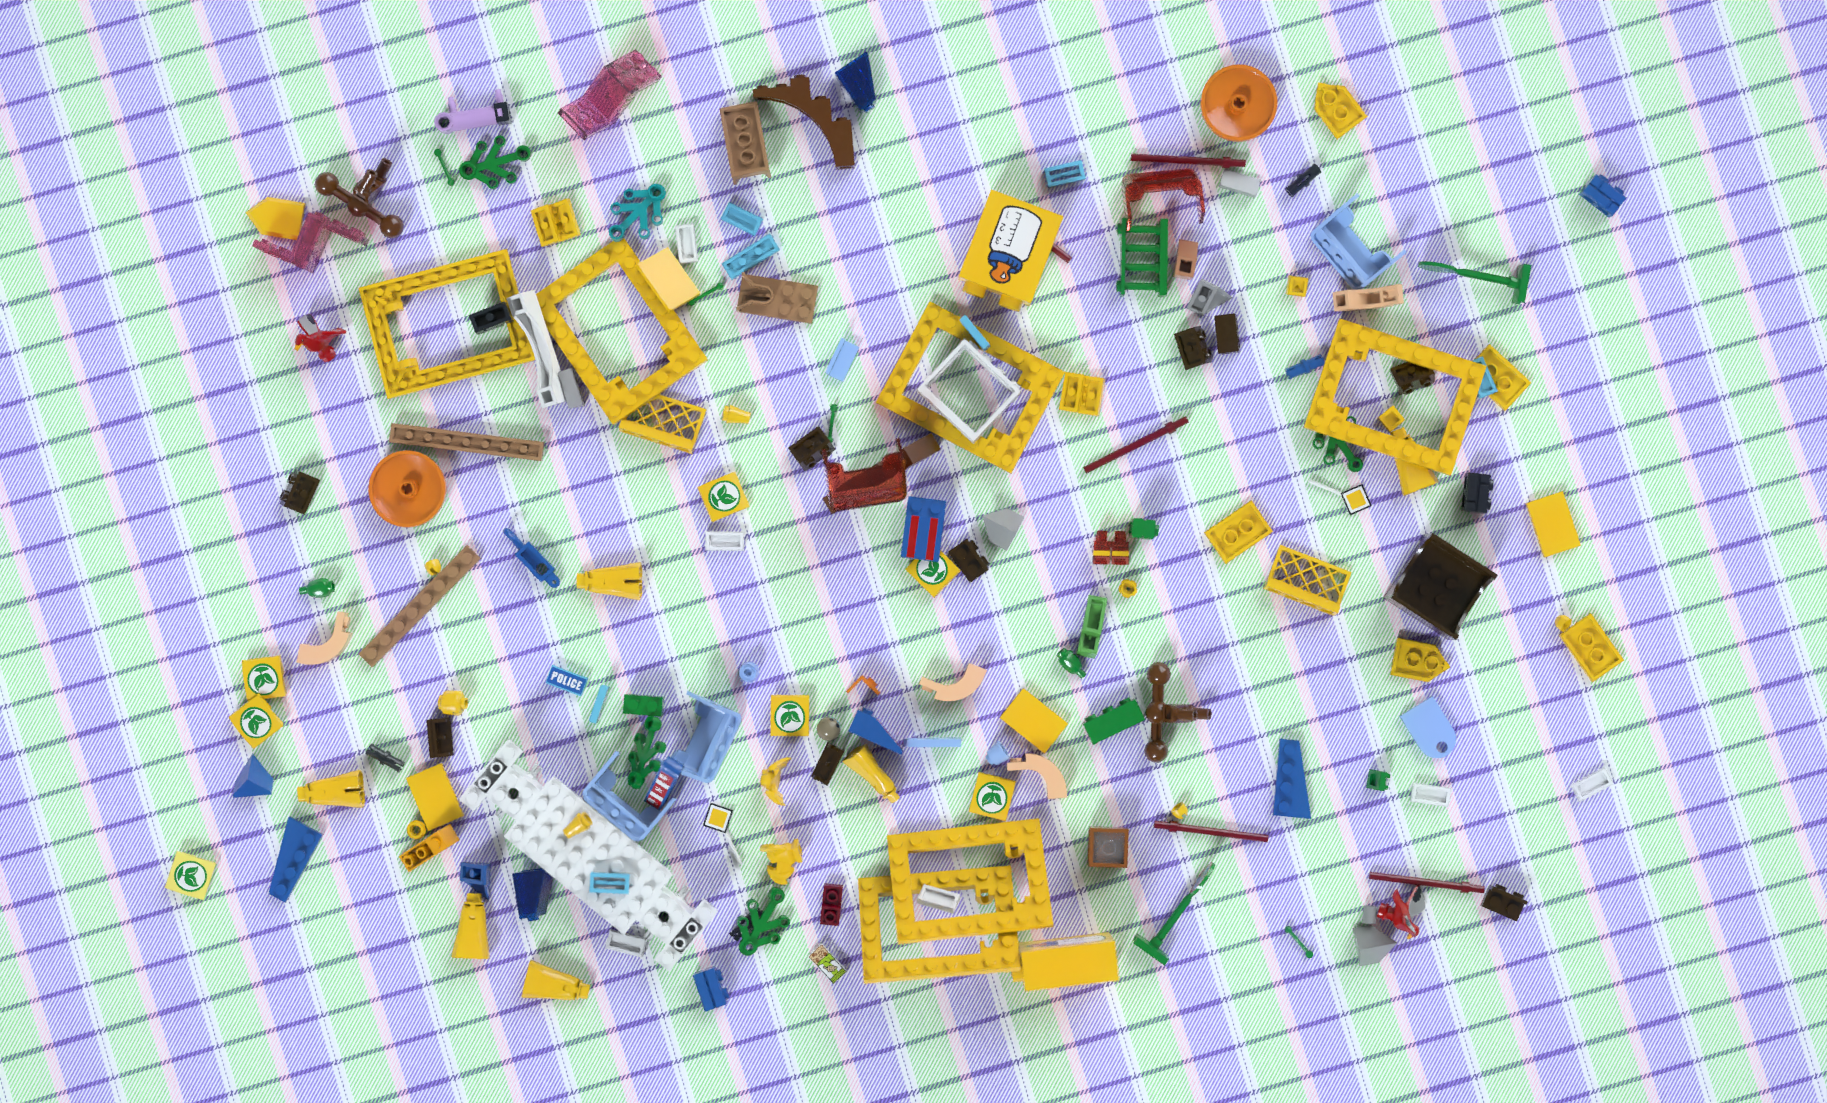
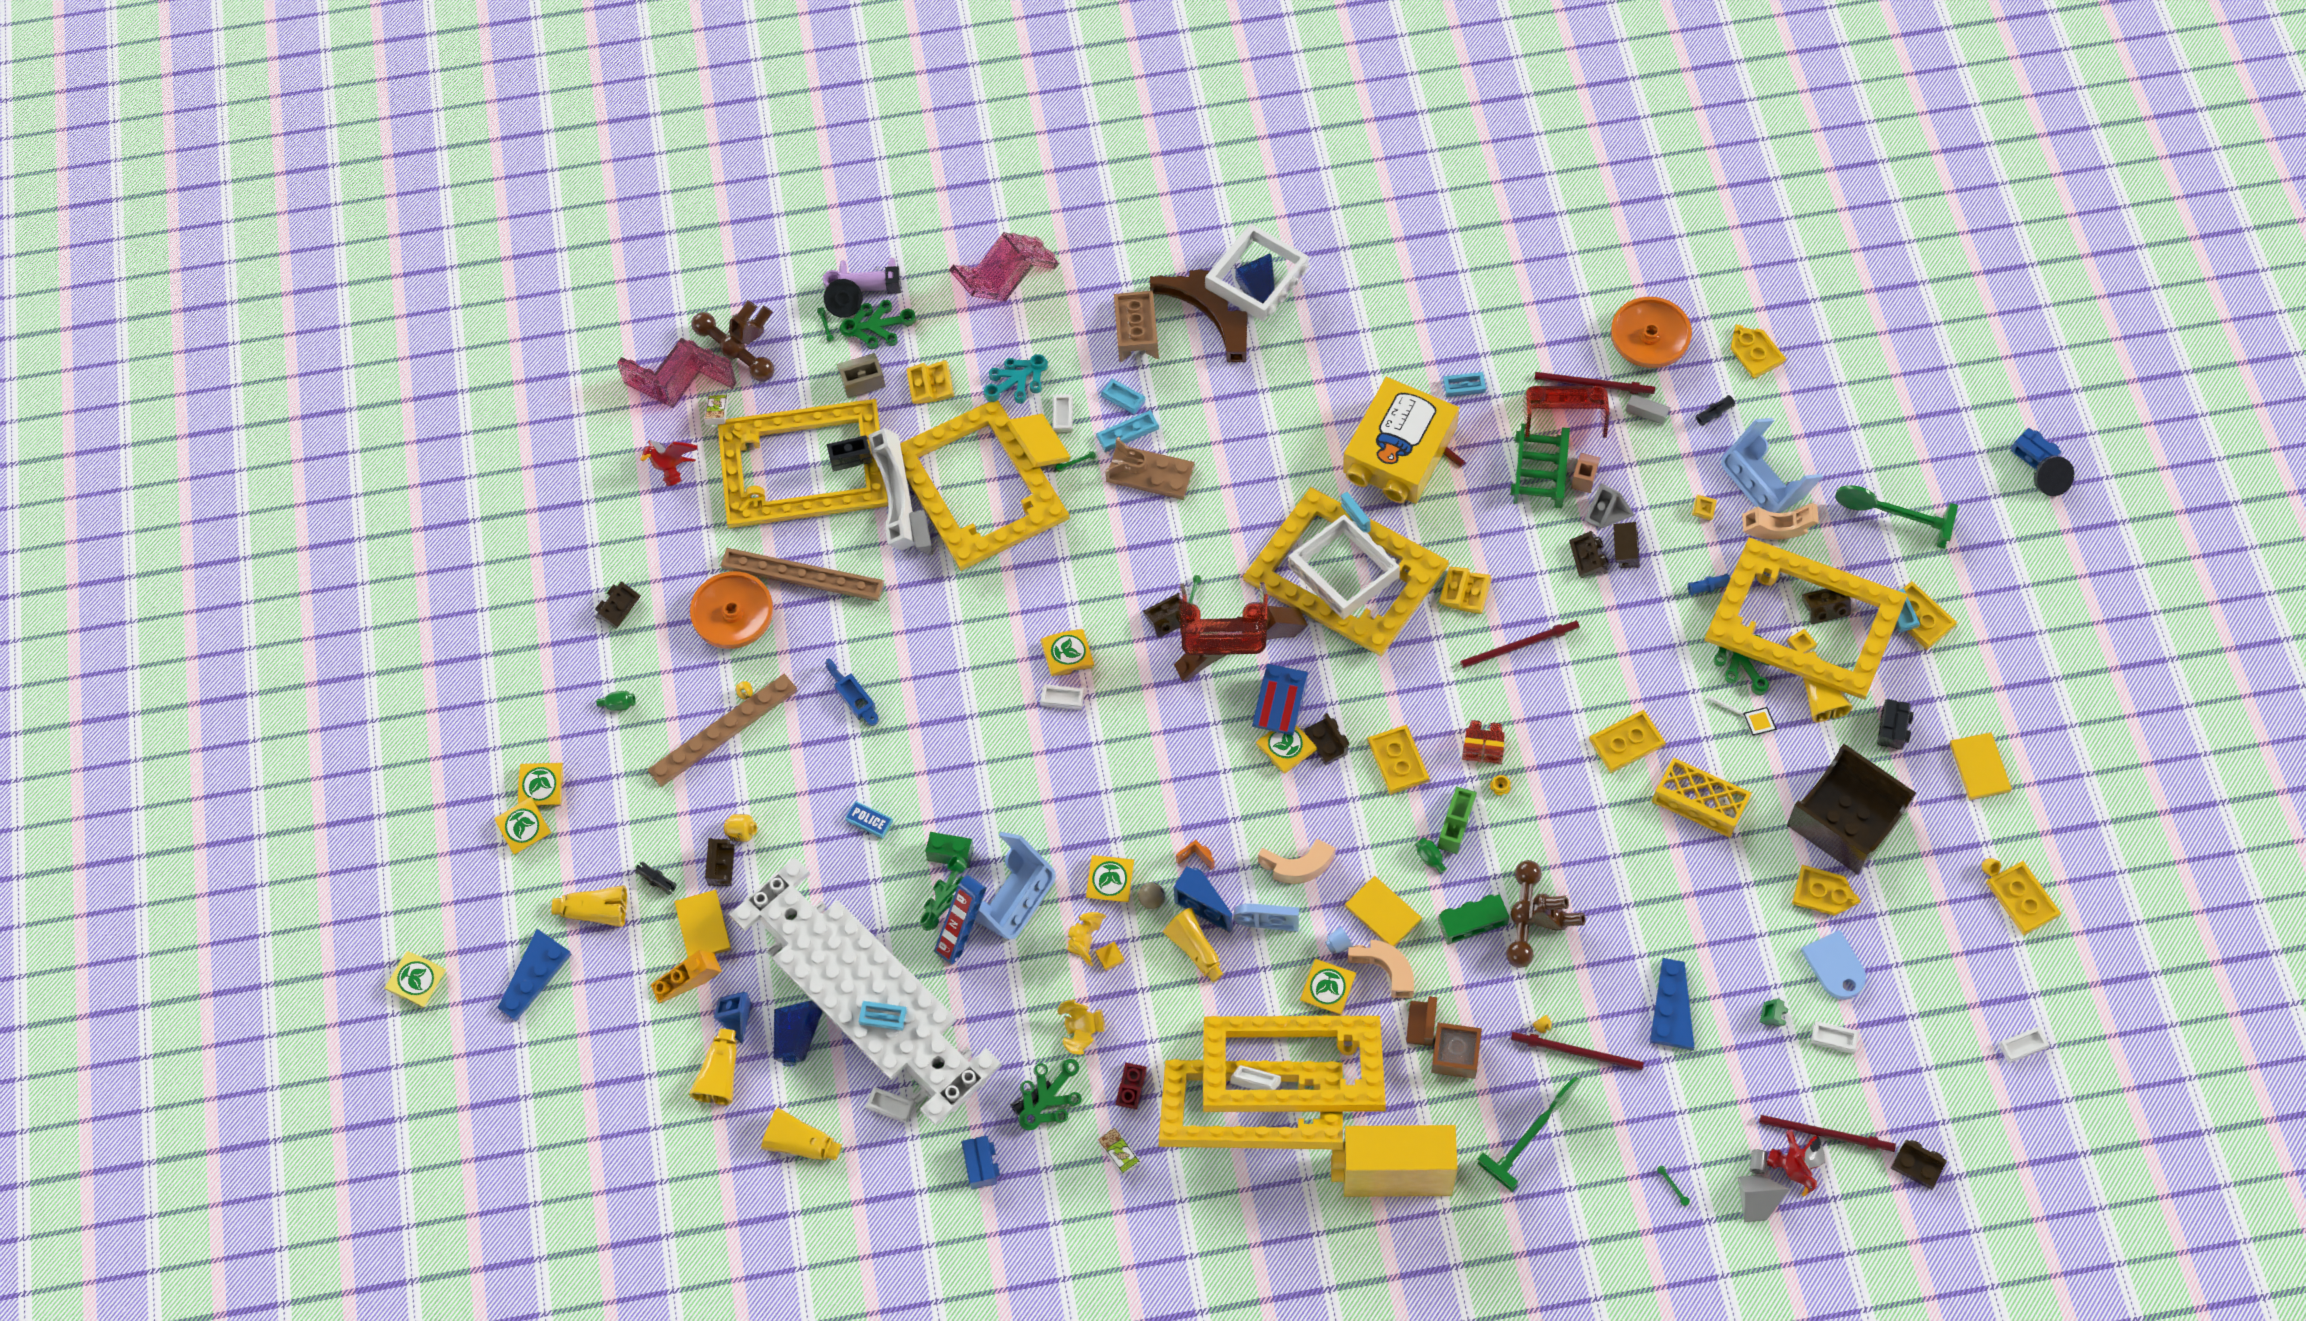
camera: 15 degrees right, 25 degrees down
(253, 780) = (506, 886): slope -> none
(278, 217) = (646, 351): yellow tile -> none
(332, 648) = (616, 762): light nougat arch -> none
(355, 275) = (716, 409): none -> tile
(410, 829) = (673, 951): yellow plate -> none
(457, 140) = (842, 298): none -> black tile
(487, 222) = (861, 375): none -> dark tan slope
(579, 824) = (857, 948): yellow cone -> none
(599, 703) = (901, 844): medium azure tile -> none
(617, 581) = (941, 723): yellow piece -> none
(618, 812) = (889, 928): light blue windscreen -> none
(662, 437) = (1006, 586): yellow fence -> none
(719, 819) = (1015, 982): piece -> none
(735, 415) = (1089, 574): yellow cone -> none
(748, 672) = (1070, 830): light blue hat -> none
(798, 787) = (1110, 956): none -> yellow tile
(827, 763) = (1147, 933): dark brown hinge -> none
(842, 360) = (1210, 533): light blue panel -> none
(881, 100) = (1214, 278): none -> white window
(1002, 527) = (1366, 710): light grey slope -> none
(1034, 571) = (1398, 759): none -> yellow tile
(1075, 819) = (1421, 1022): none -> dark orange panel
(1143, 529) = (1521, 721): green brick -> none
(1619, 223) = (2054, 475): none -> black tile

